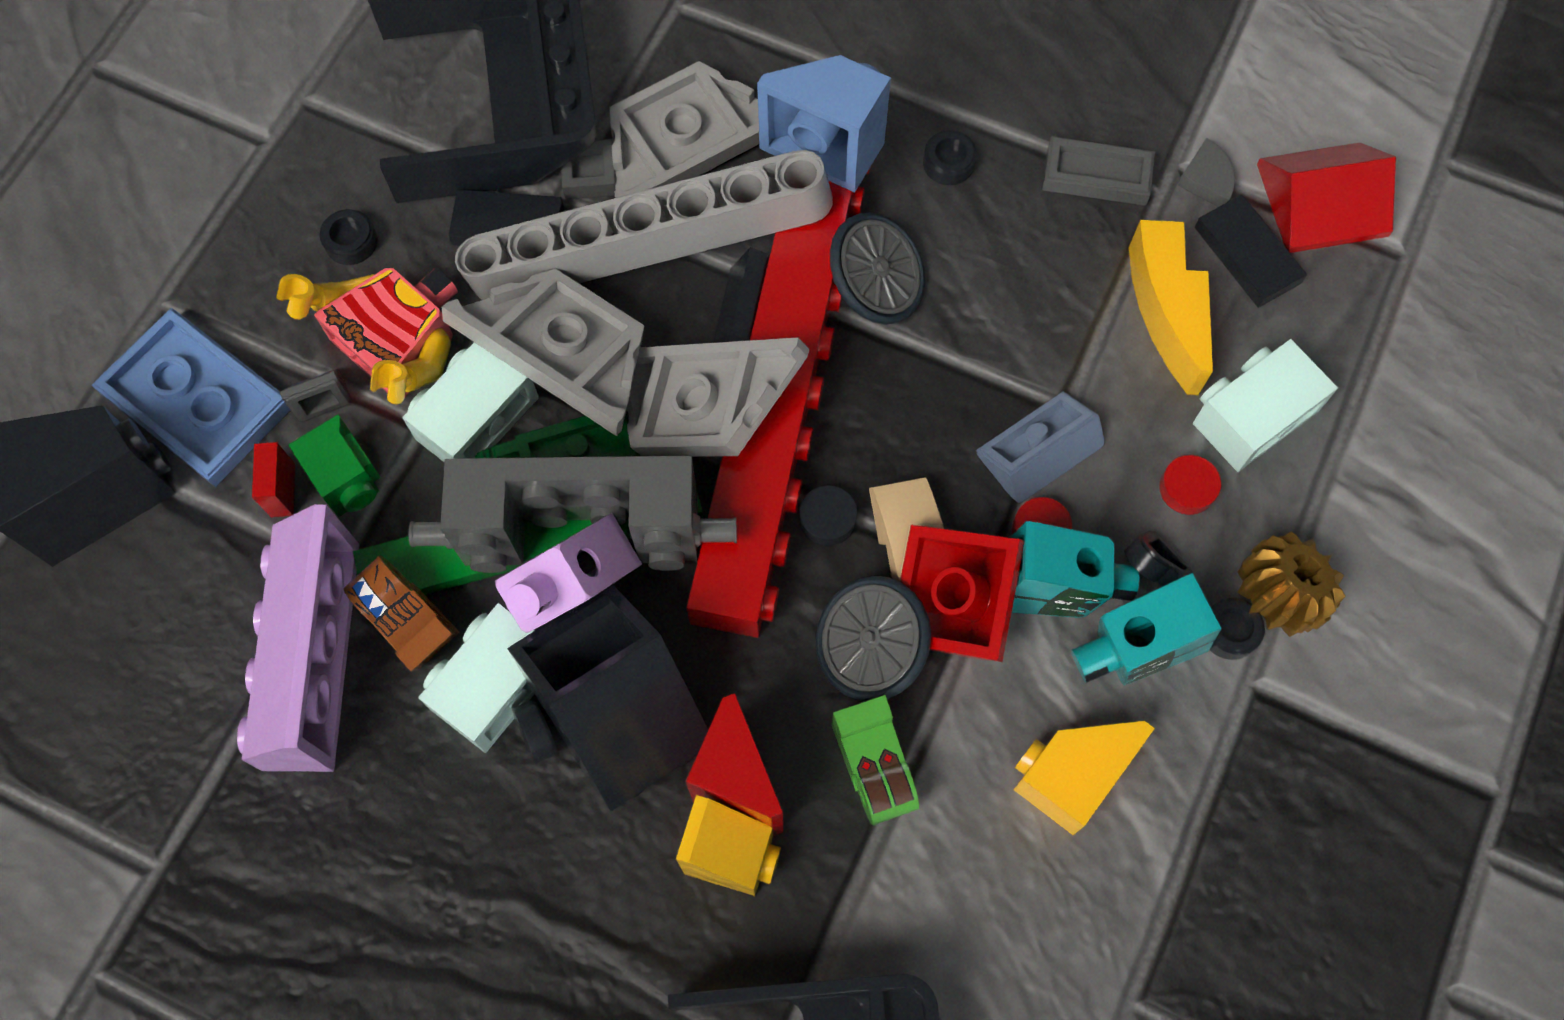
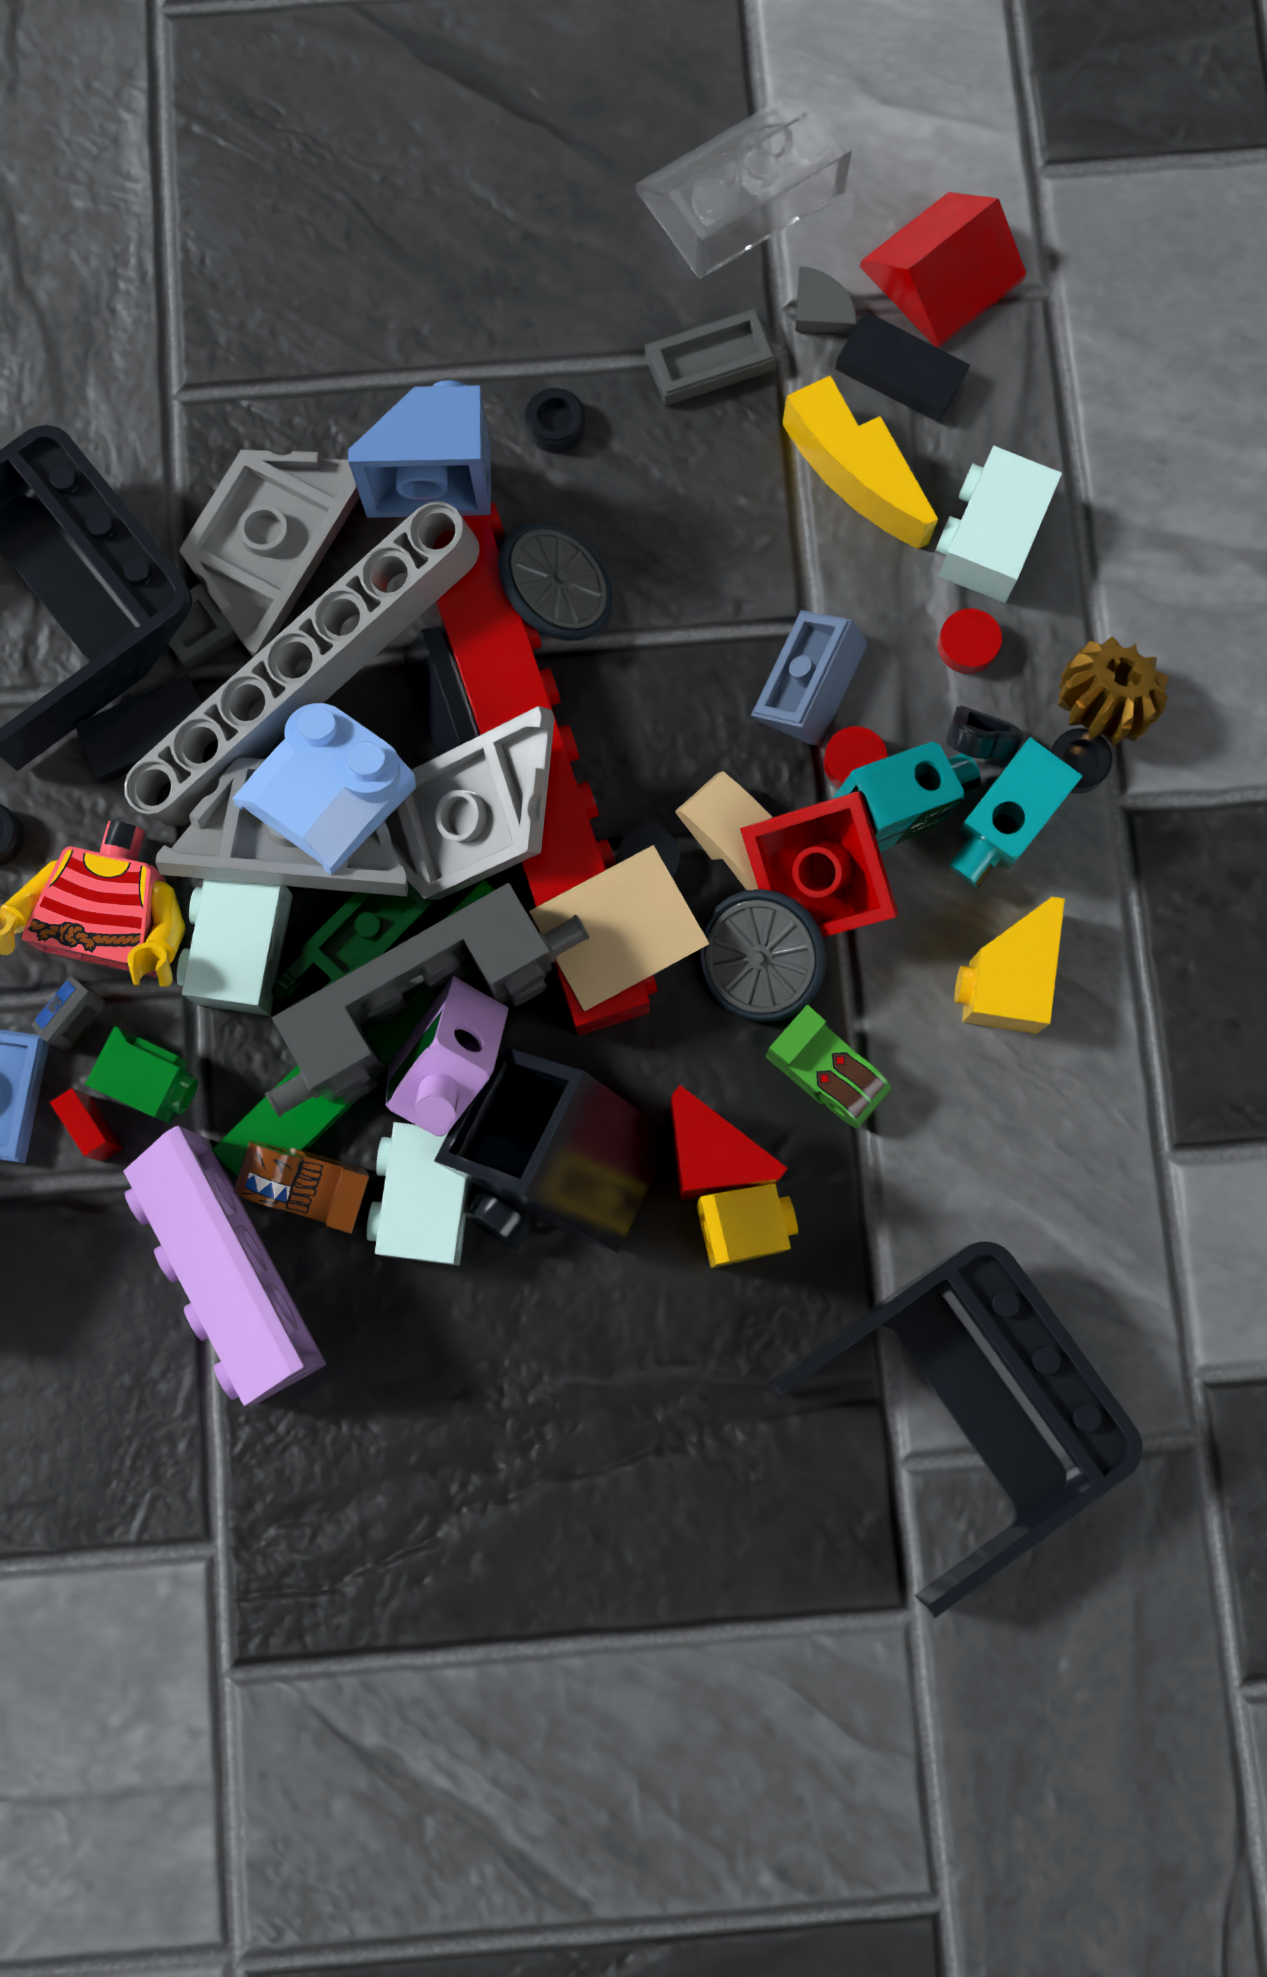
camera: 30 degrees left, 10 degrees up
(606, 319) = (327, 784): none -> light blue slope
(778, 553) = (633, 927): none -> tan sticker
(1200, 63) = (748, 183): none -> clear slope

